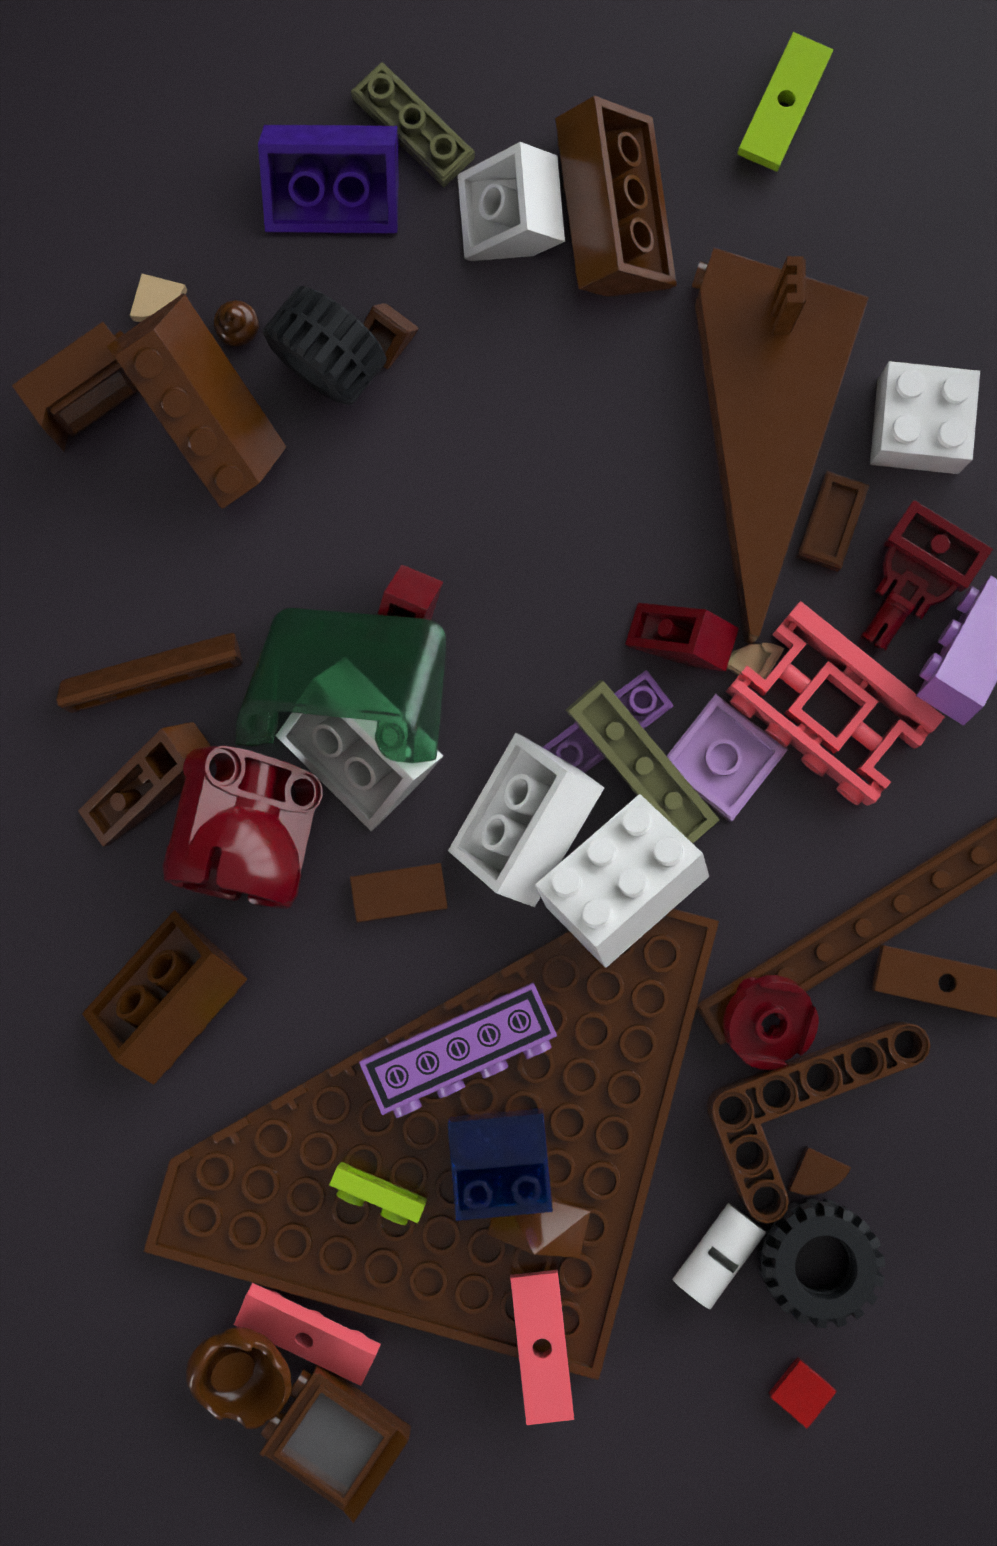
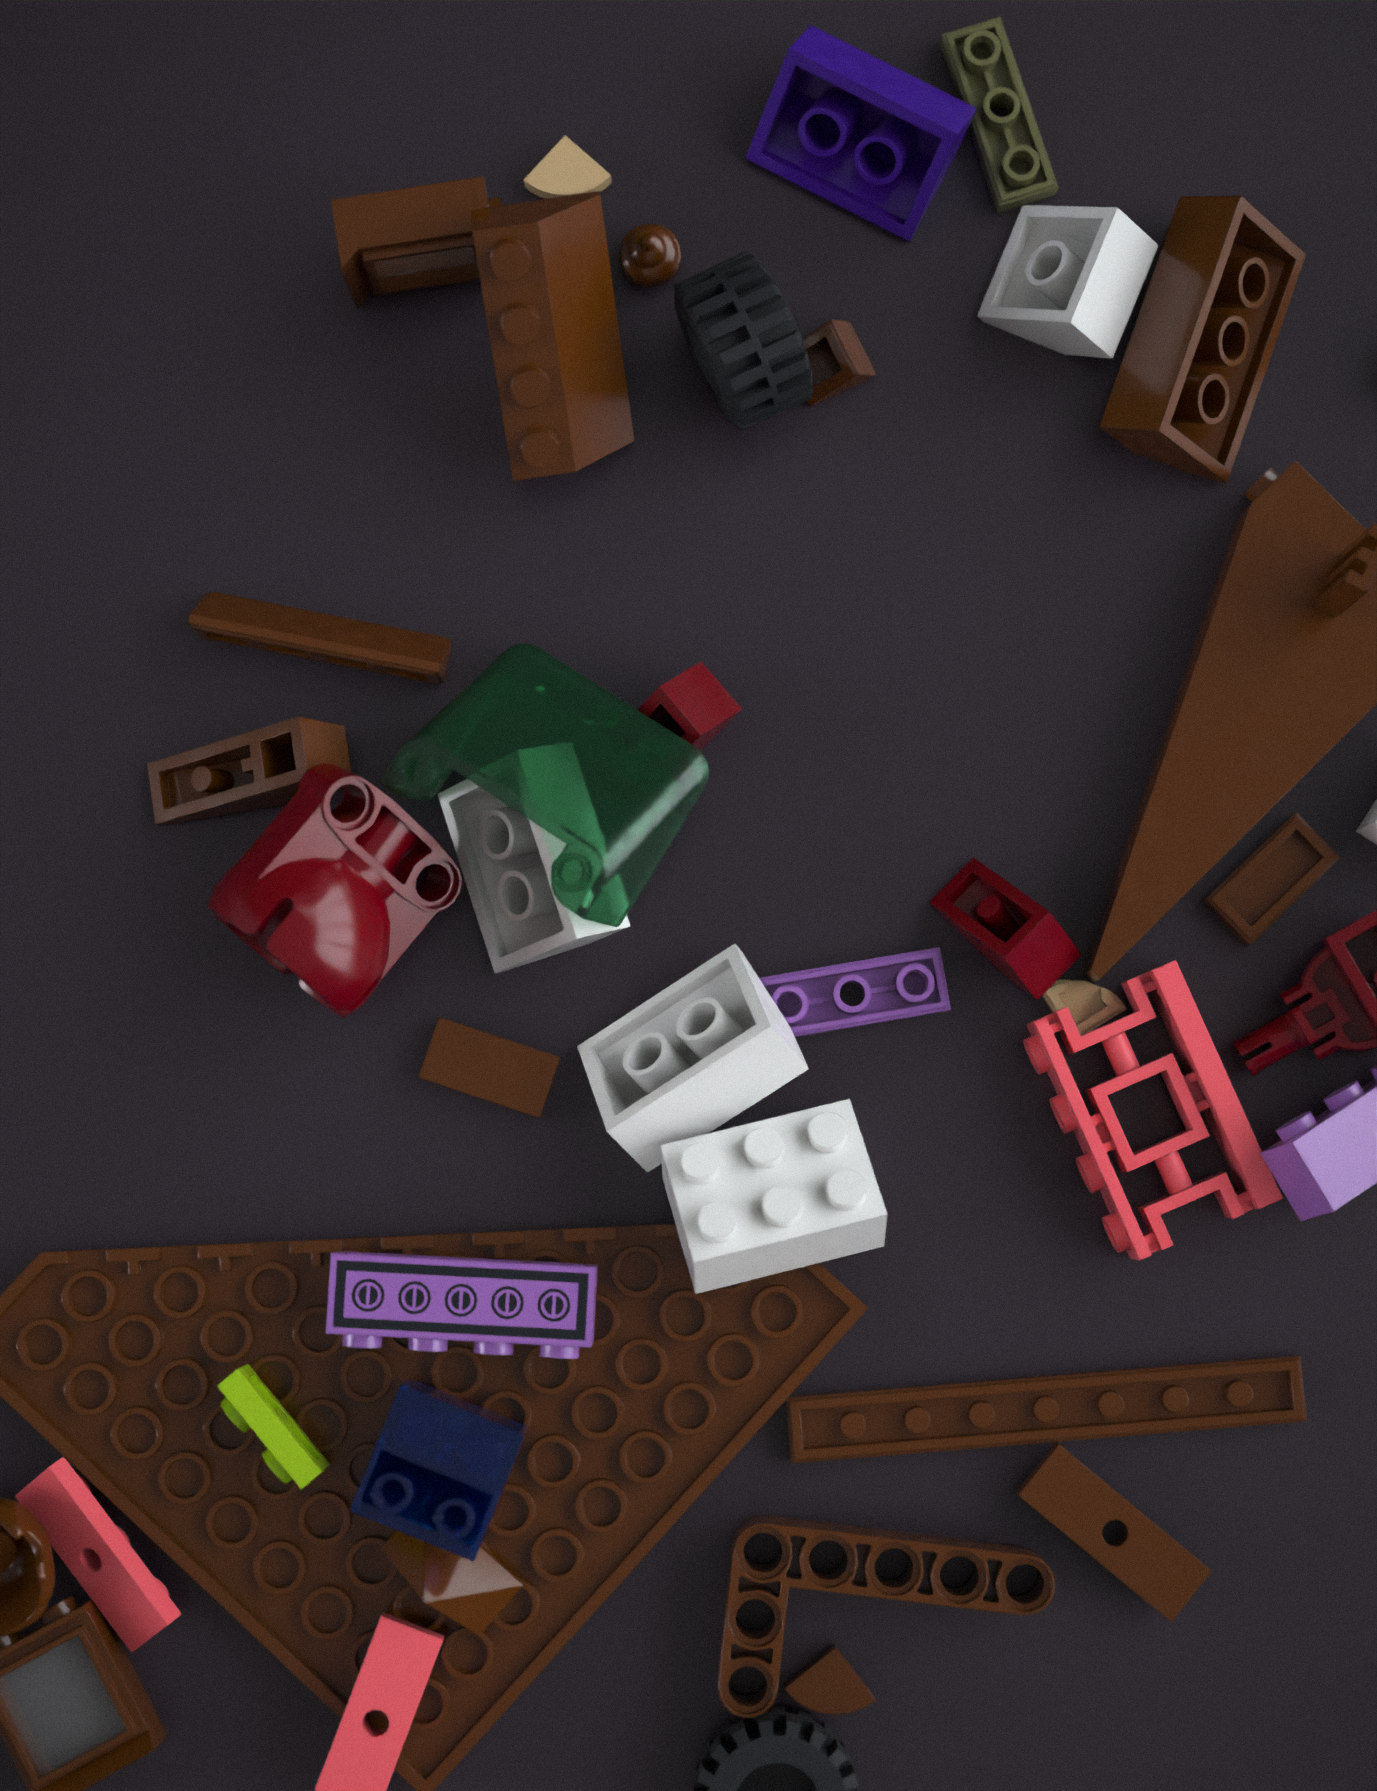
camera: 25 degrees right, 0 degrees up
(163, 998) = (133, 1049): reddish brown slope -> none
(640, 760) = (872, 1060): olive plate -> none
(719, 1256) = (654, 1724): white pin -> none
(725, 757) = (979, 1106): lavender tile -> none
(754, 1002) = (859, 1432): dark red plate -> none

